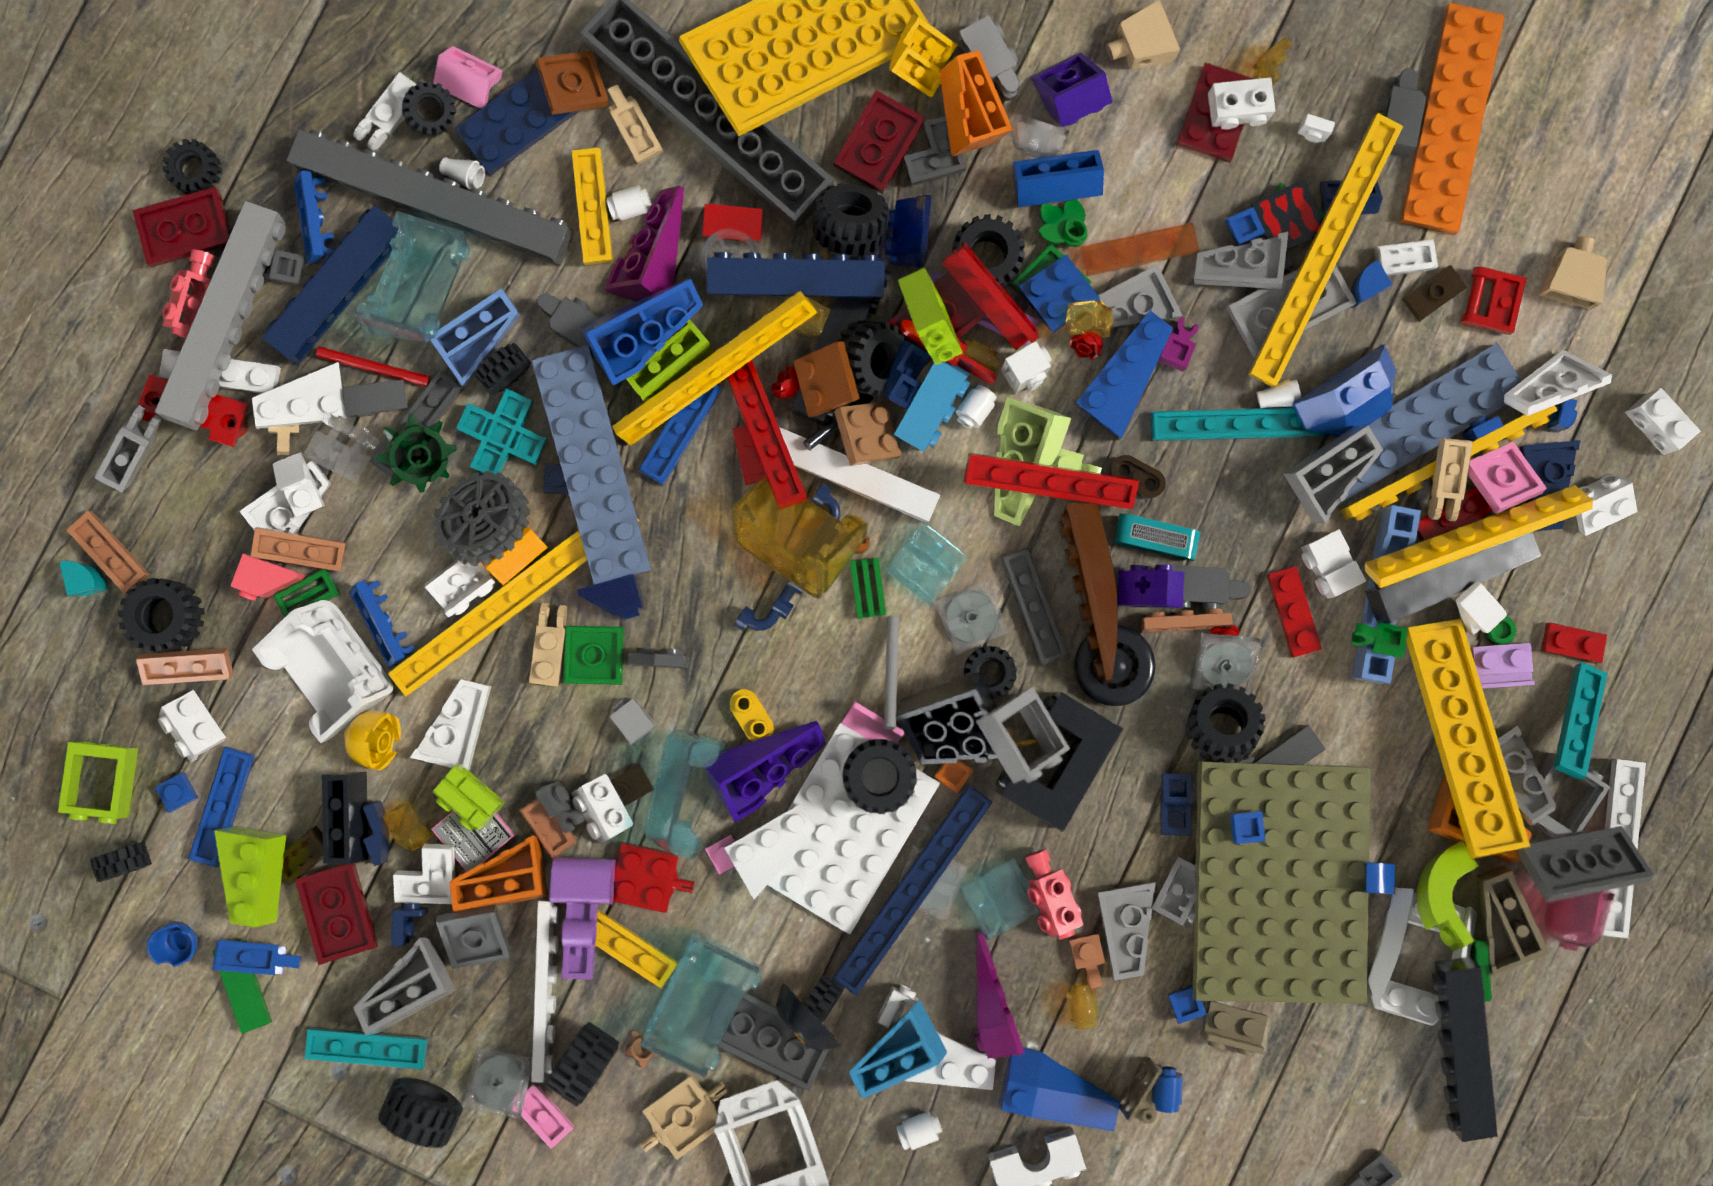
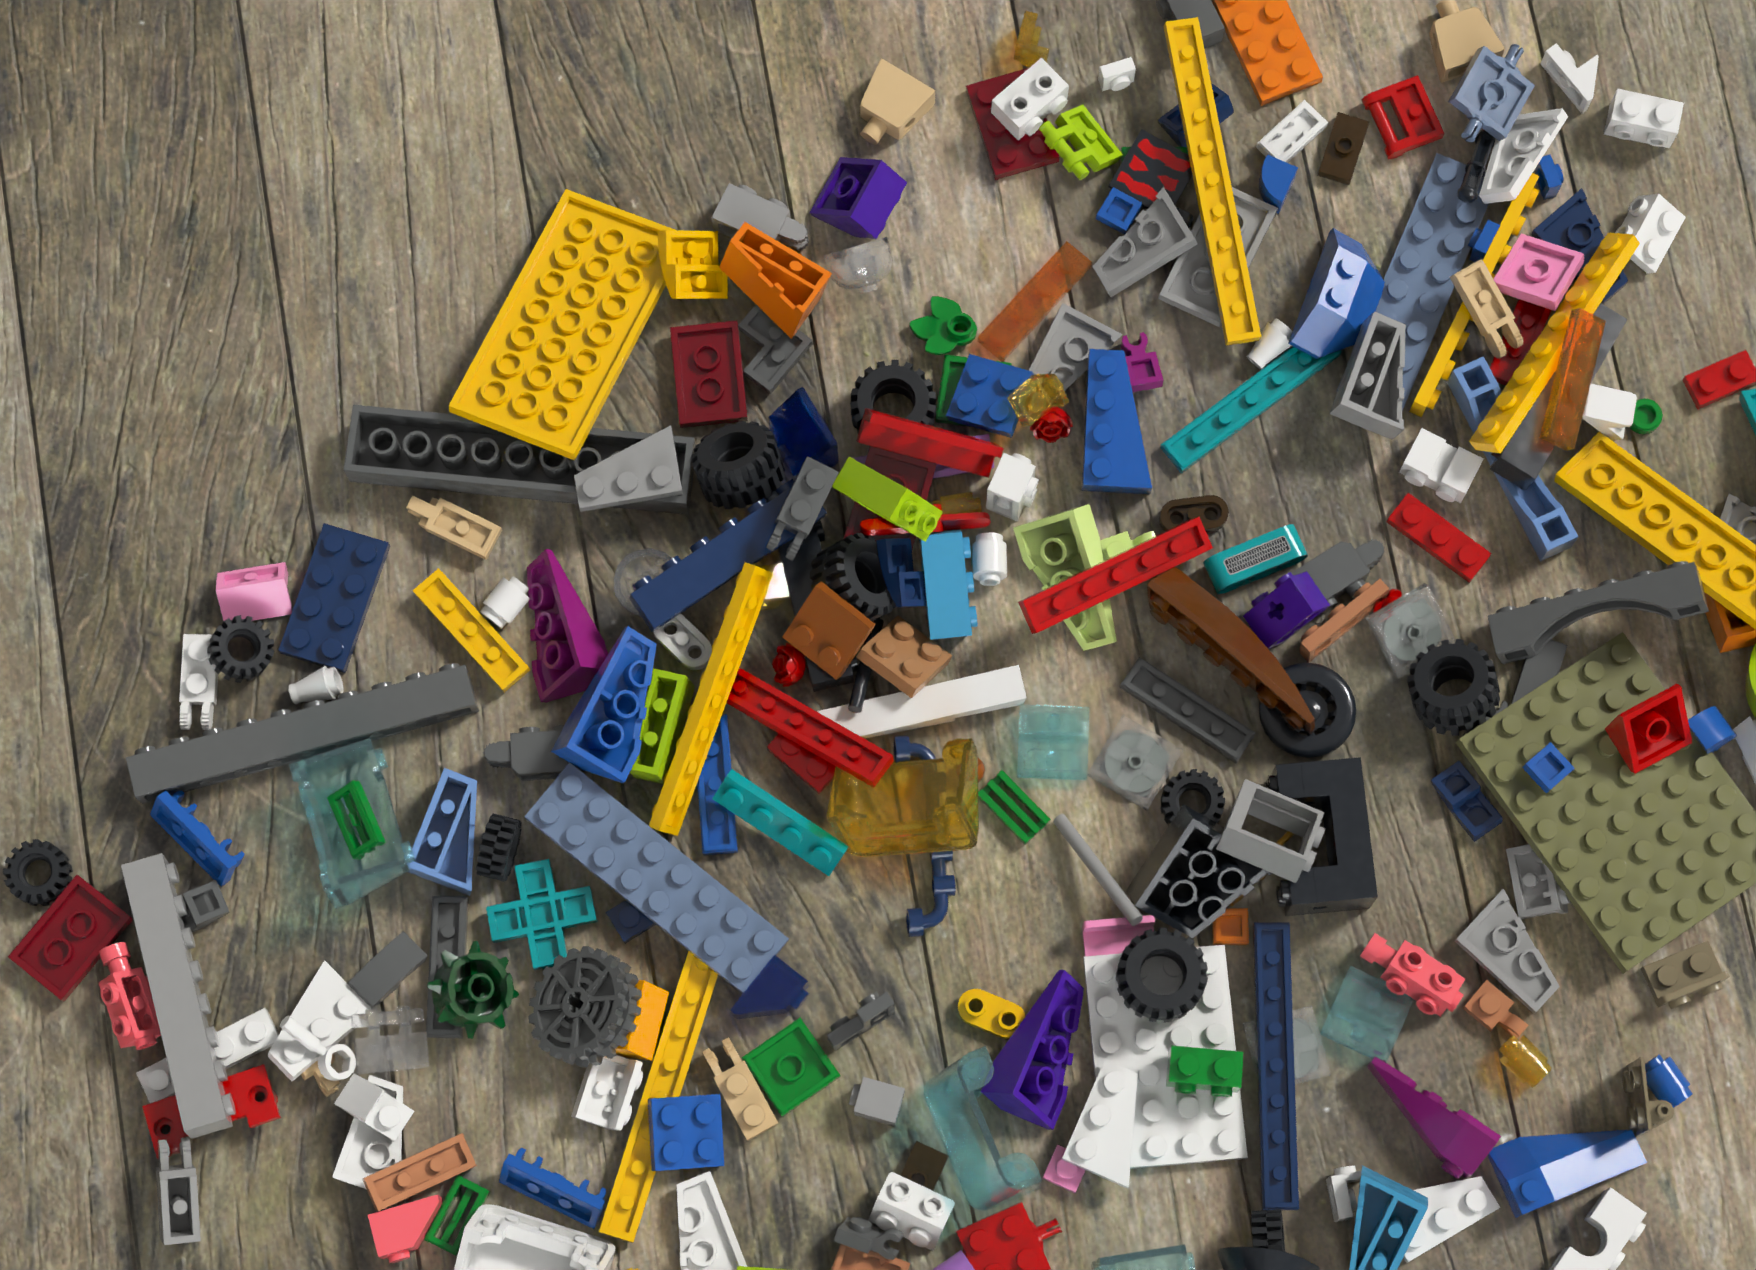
camera: 30 degrees left, 10 degrees down
(283, 413) = (325, 1053): none -> white piece
(333, 286) = (267, 886): dark blue brick -> none
(373, 366) = (362, 940): red bar -> none
(421, 282) = (360, 817): none -> green tile
(491, 649) = (685, 1132): none -> blue plate
(572, 82) = (366, 524): dark orange plate -> none
(702, 486) = (780, 822): none -> teal plate
(727, 316) = (683, 641): none -> white plate
(732, 217) = (610, 551): red hinge -> none
(772, 174) = (632, 475): none -> light grey wing
(861, 859) = (1204, 1070): none -> green brick
(868, 278) = (803, 504): none -> dark grey hinge
(1058, 178) = (908, 288): blue brick -> none
(1184, 1006) = (1622, 988): blue plate -> none
(1261, 158) = (1086, 136): none -> lime plate
(1338, 851) = (1651, 729): none -> red slope
(1385, 638) = (1539, 497): green plate -> none
(1422, 769) = (1527, 629): none -> dark grey arch
(1471, 572) = (1572, 379): none -> clear orange plate
(1504, 665) = (1673, 446): lavender plate -> none
(1518, 372) = (1475, 167): none -> black piece
(1569, 327) = (1491, 93): none -> sand blue plate
(1633, 360) = (1574, 81): none -> white slope

